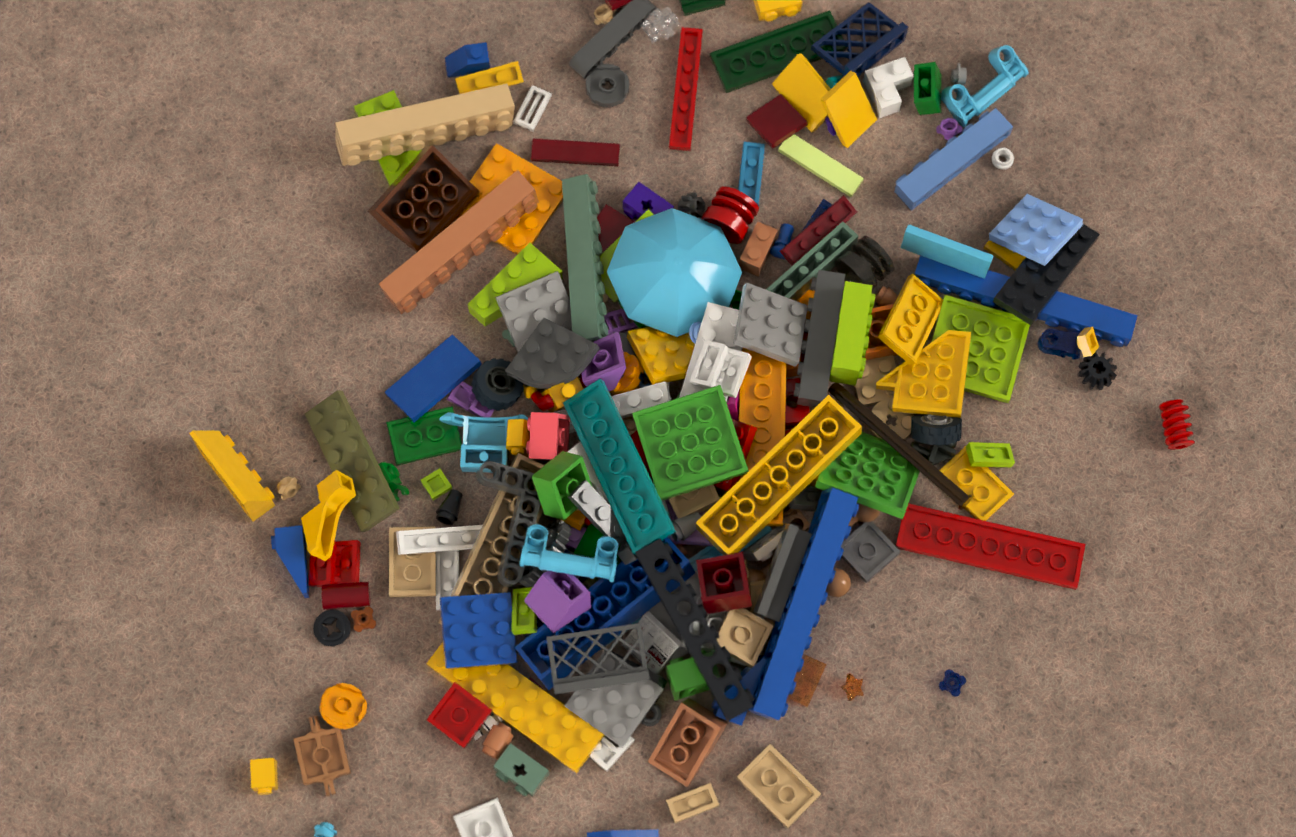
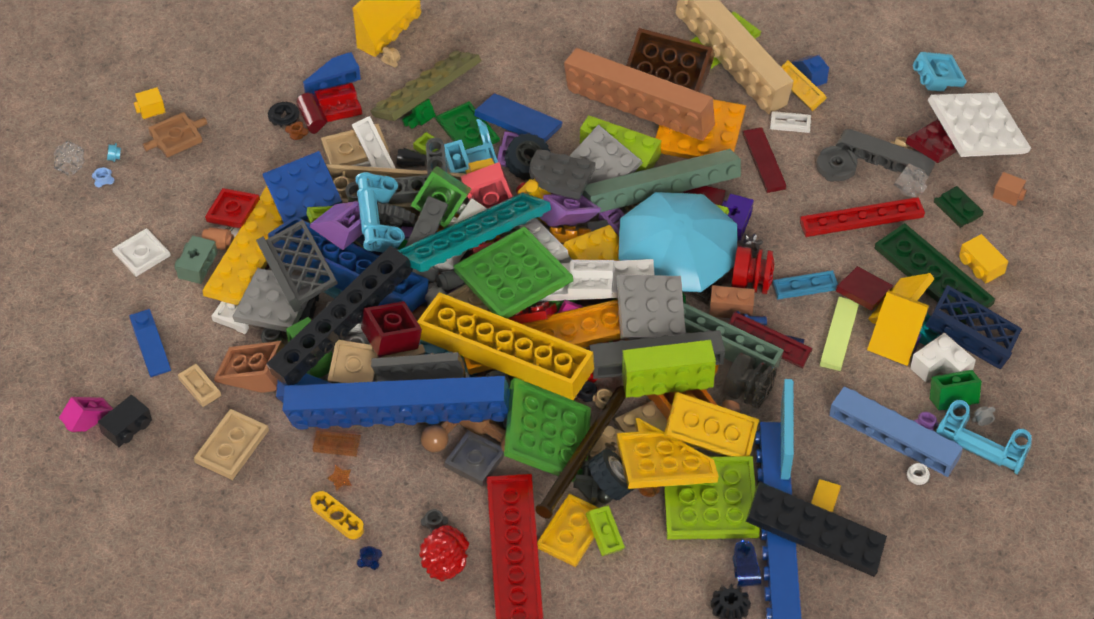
camera: 75 degrees right, 20 degrees down
(322, 521) = (371, 77): yellow arch -> none
(343, 706) = (219, 135): light orange tile -> none
(911, 697) = (335, 506): none -> yellow beam
(929, 604) = (431, 515): none -> dark grey plate
(971, 609) = (444, 552): none -> red hair
(1035, 229) = (852, 509): light blue plate -> none
(1087, 342) = (753, 580): yellow plate -> none

